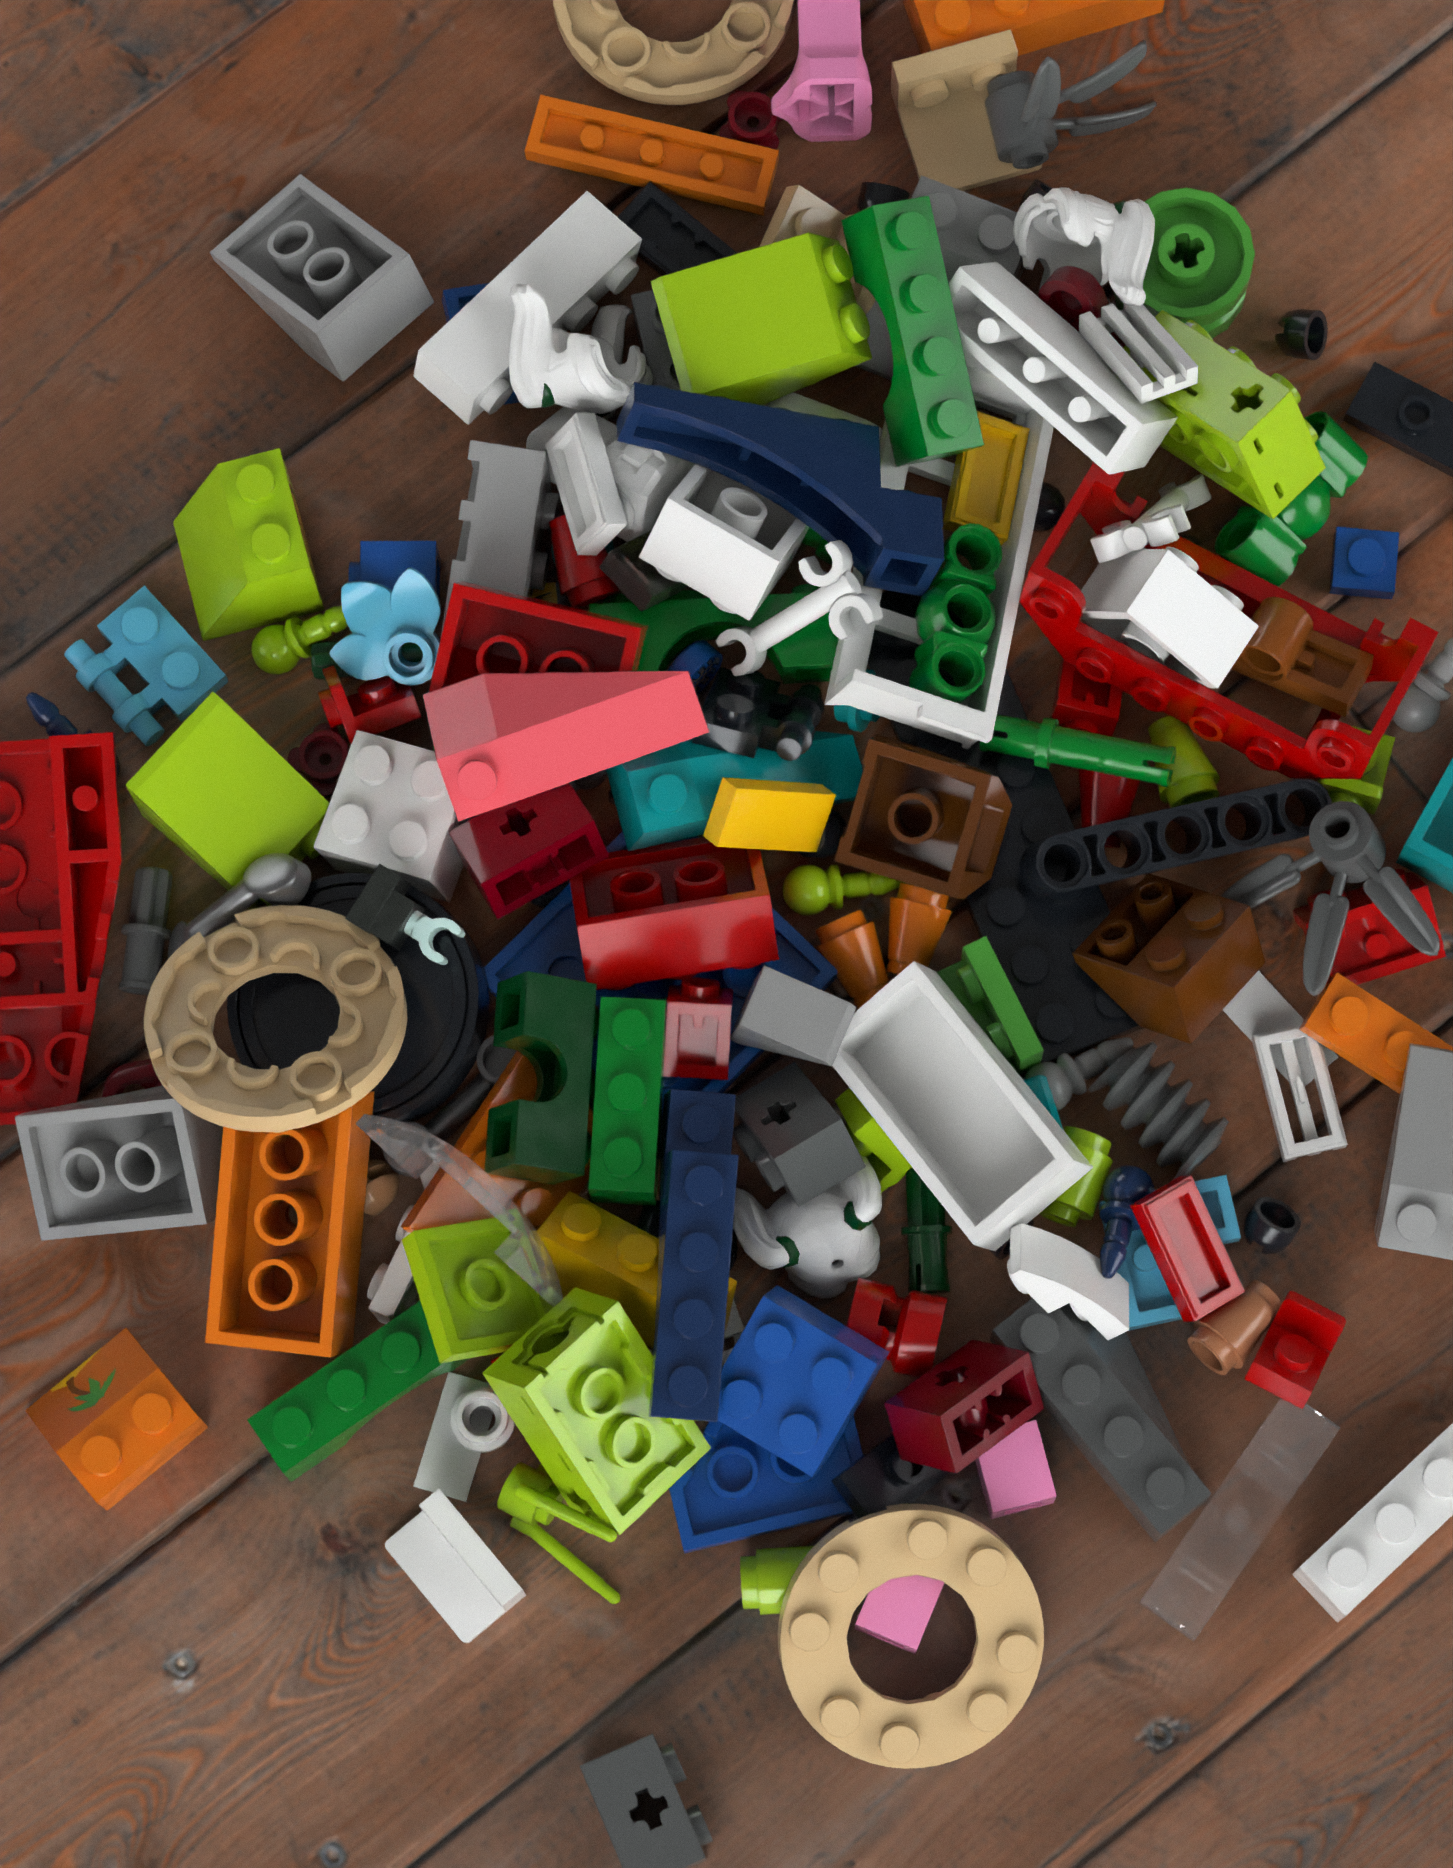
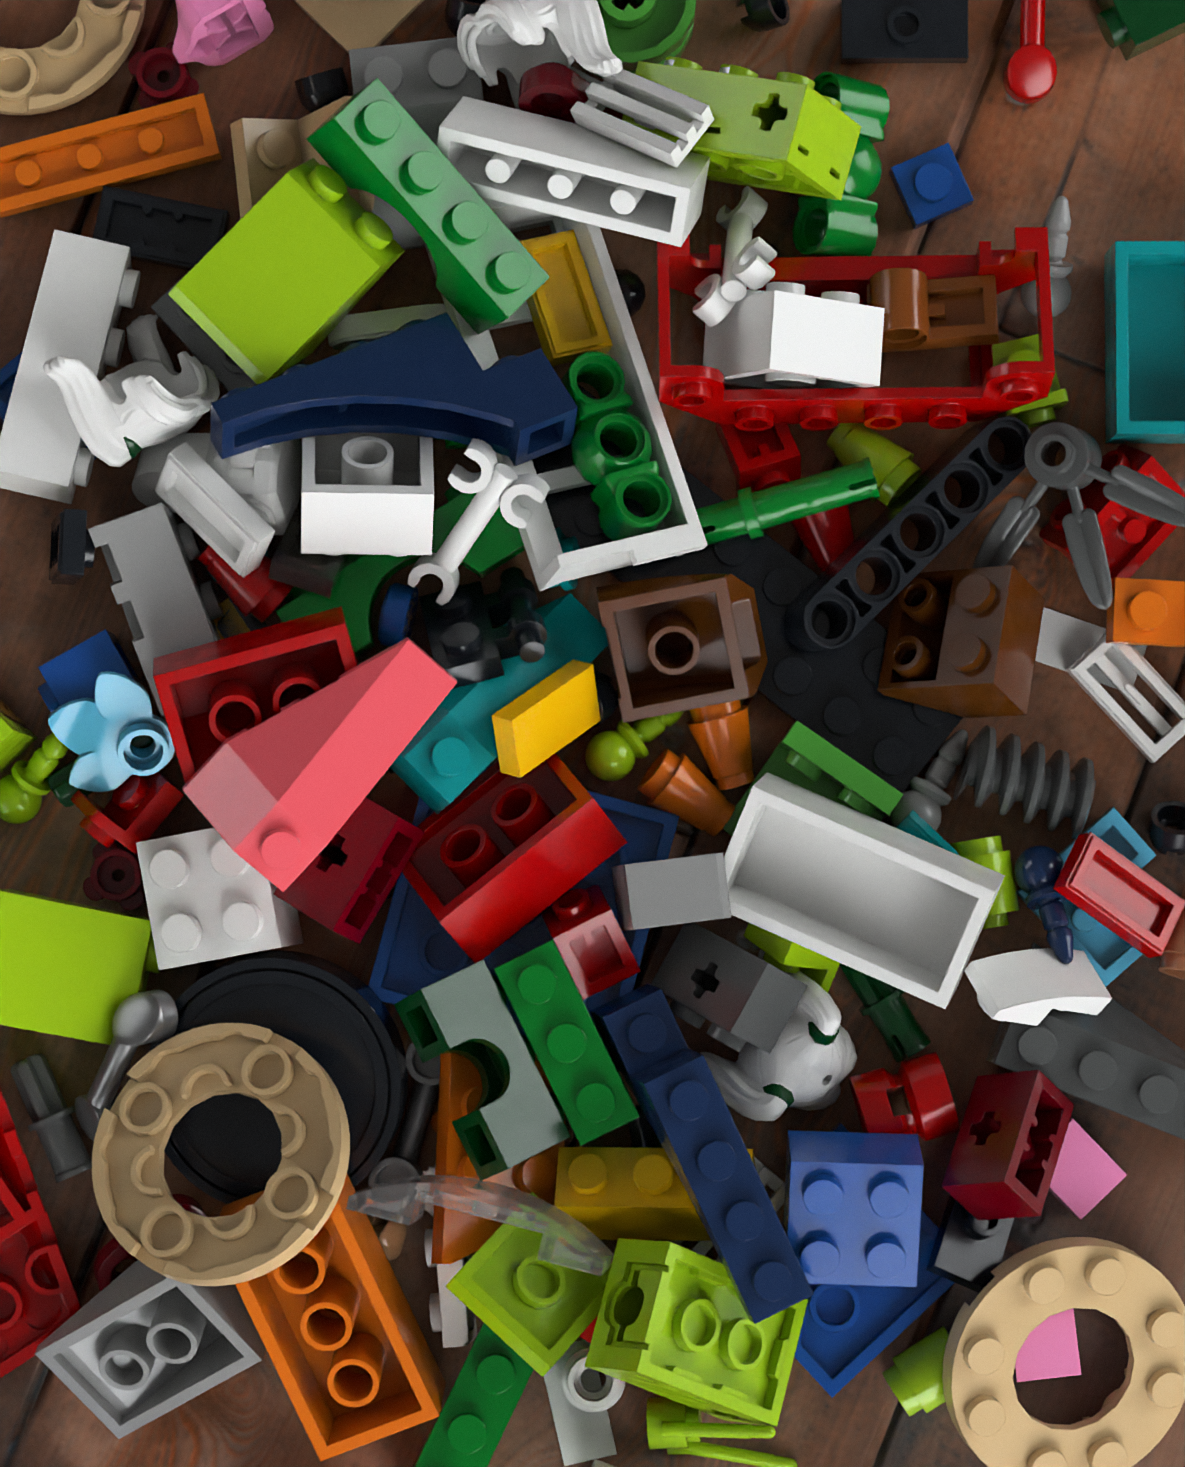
camera: 35 degrees left, 10 degrees up
(393, 917) = (265, 998): pearl dark grey piece -> none
(447, 457) = (70, 547): none -> black plate

